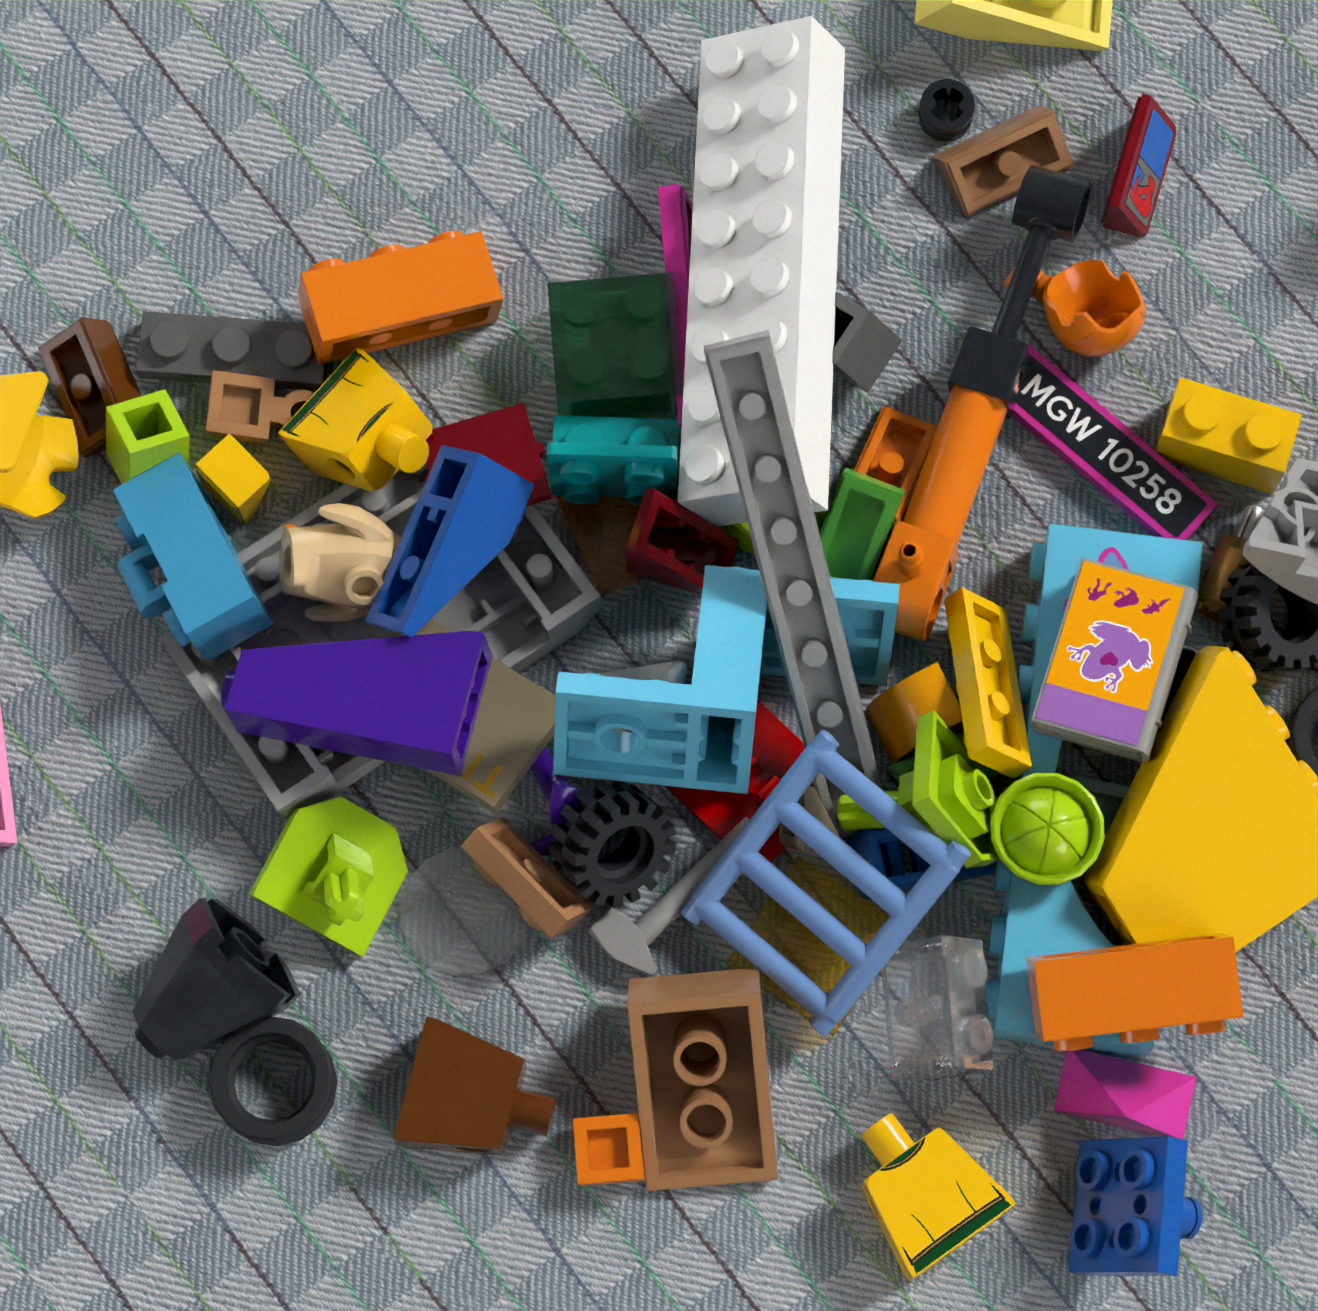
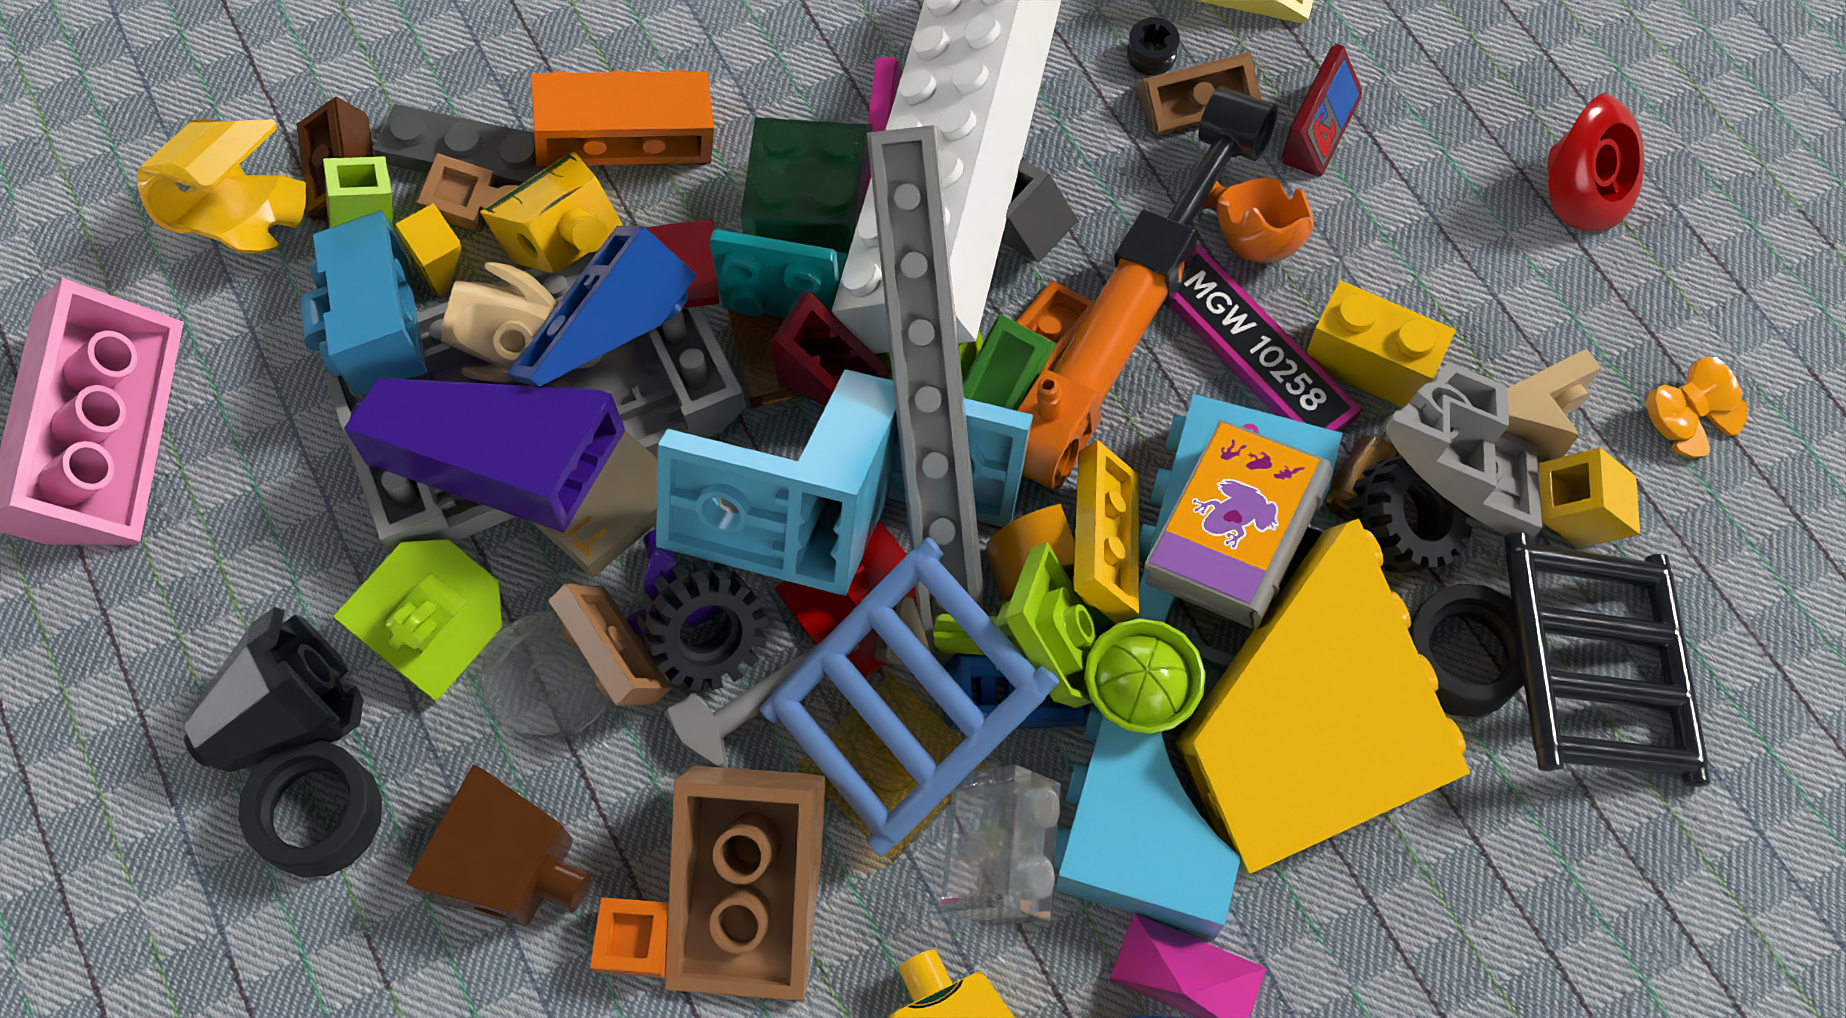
camera: 10 degrees right, 10 degrees down
(1134, 990) = (1214, 856): orange brick -> none

